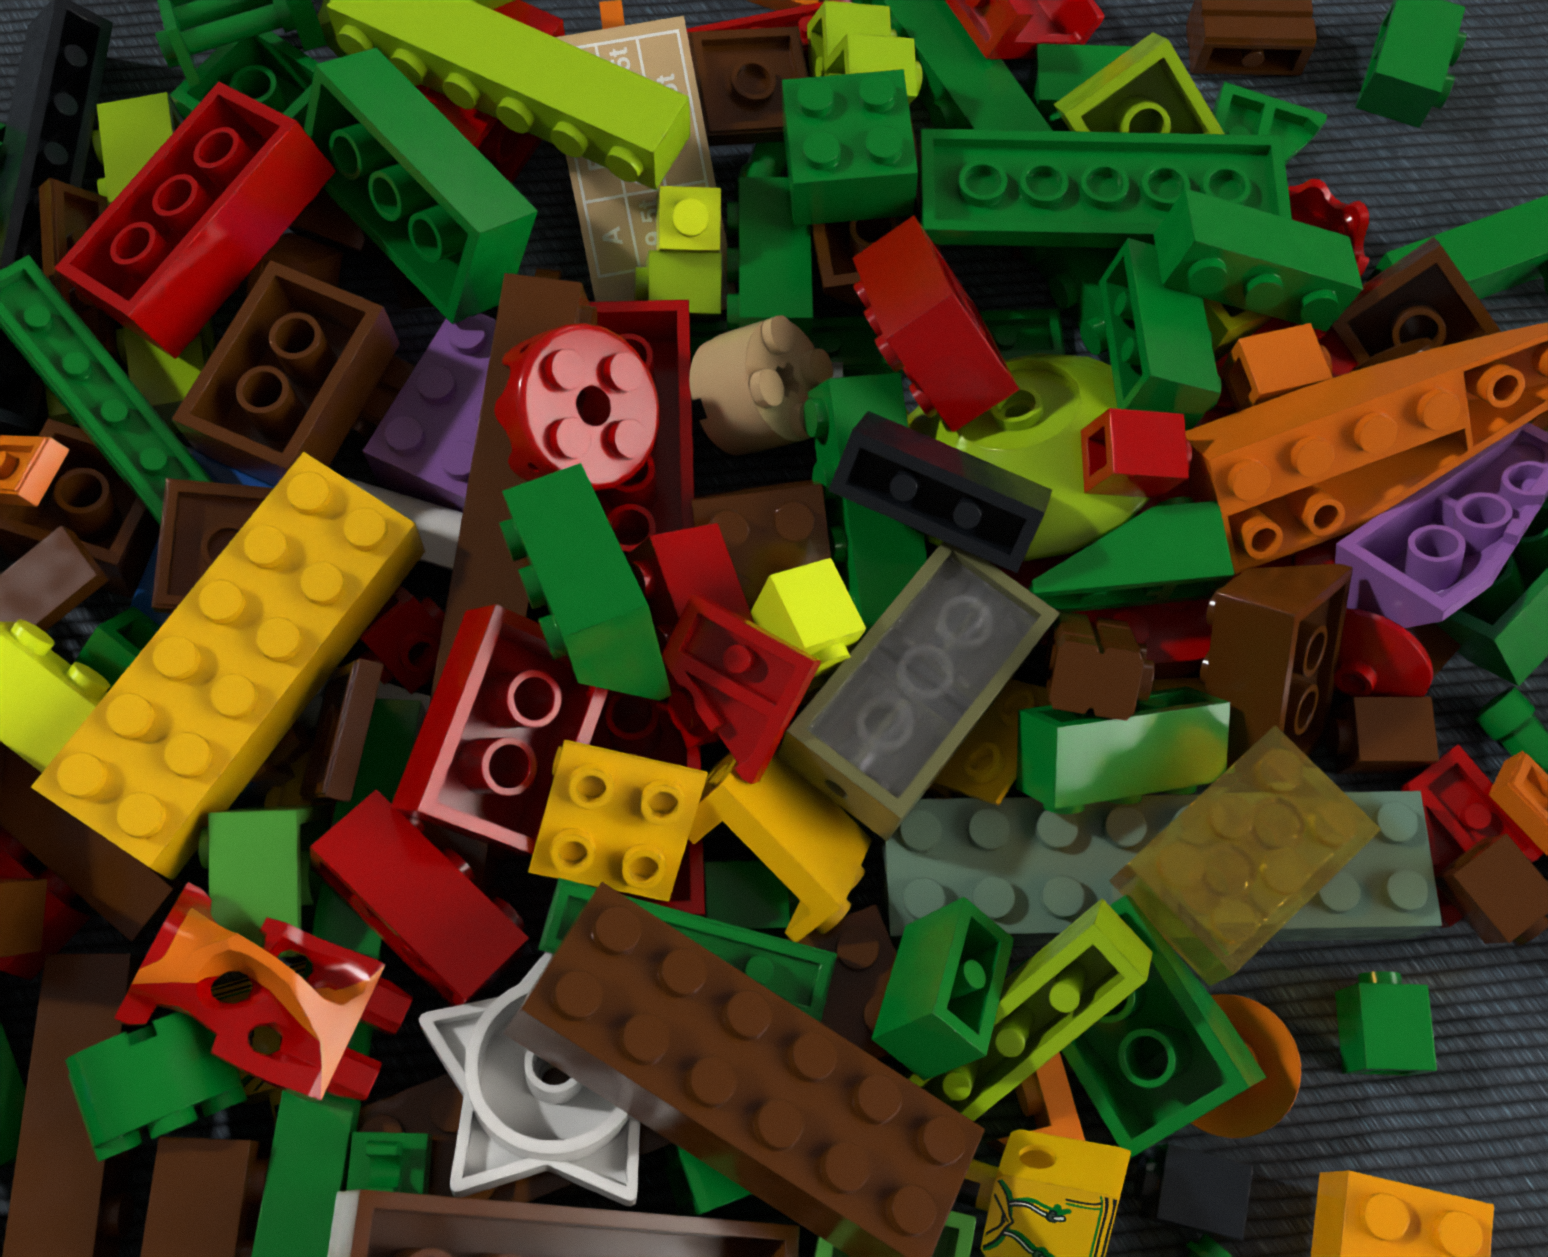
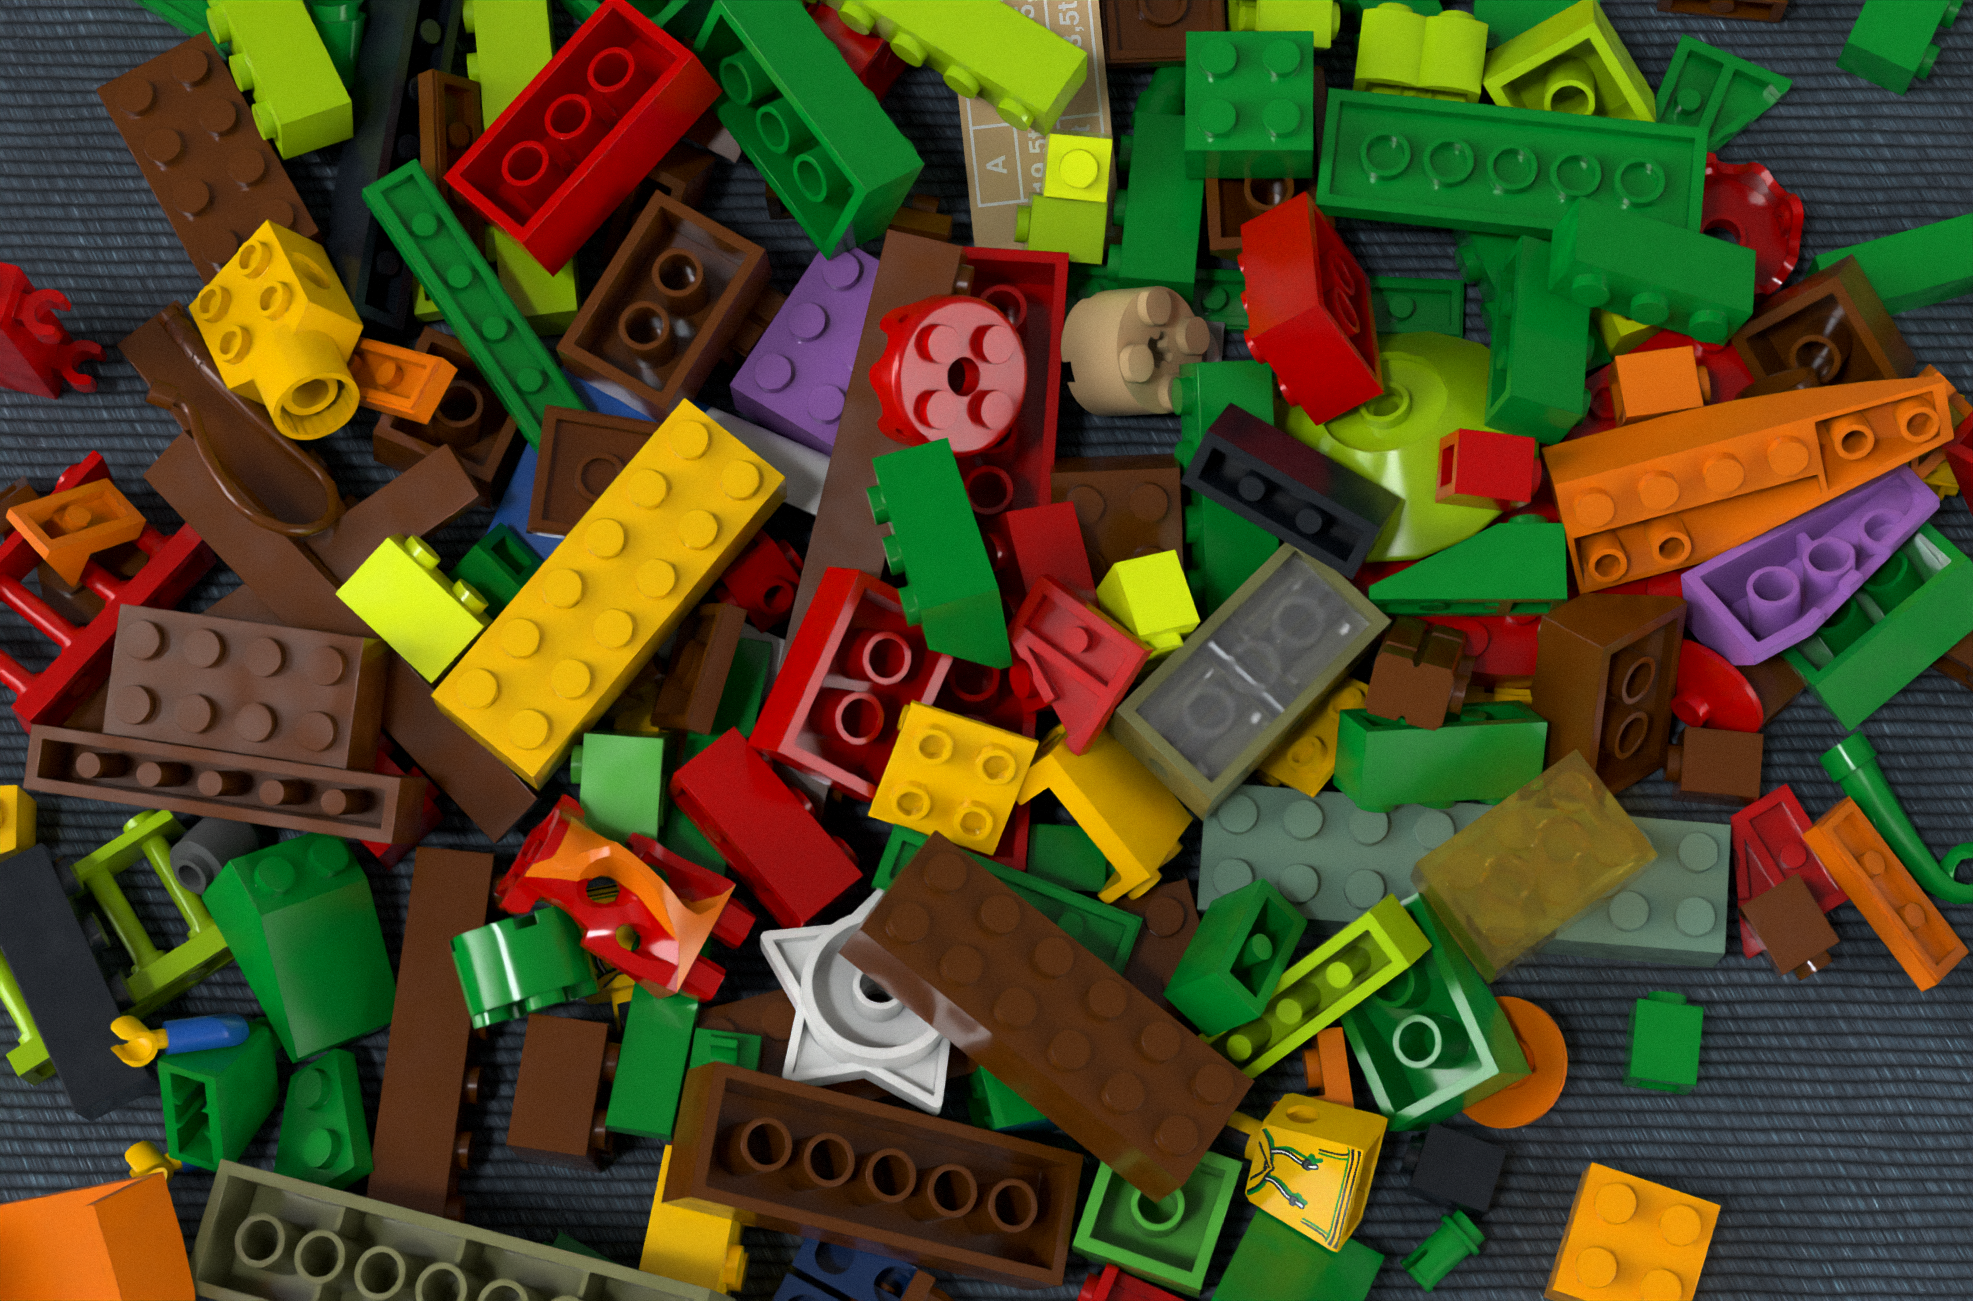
camera: 15 degrees right, 5 degrees up
(1000, 96) = (1421, 54): none -> lime brick

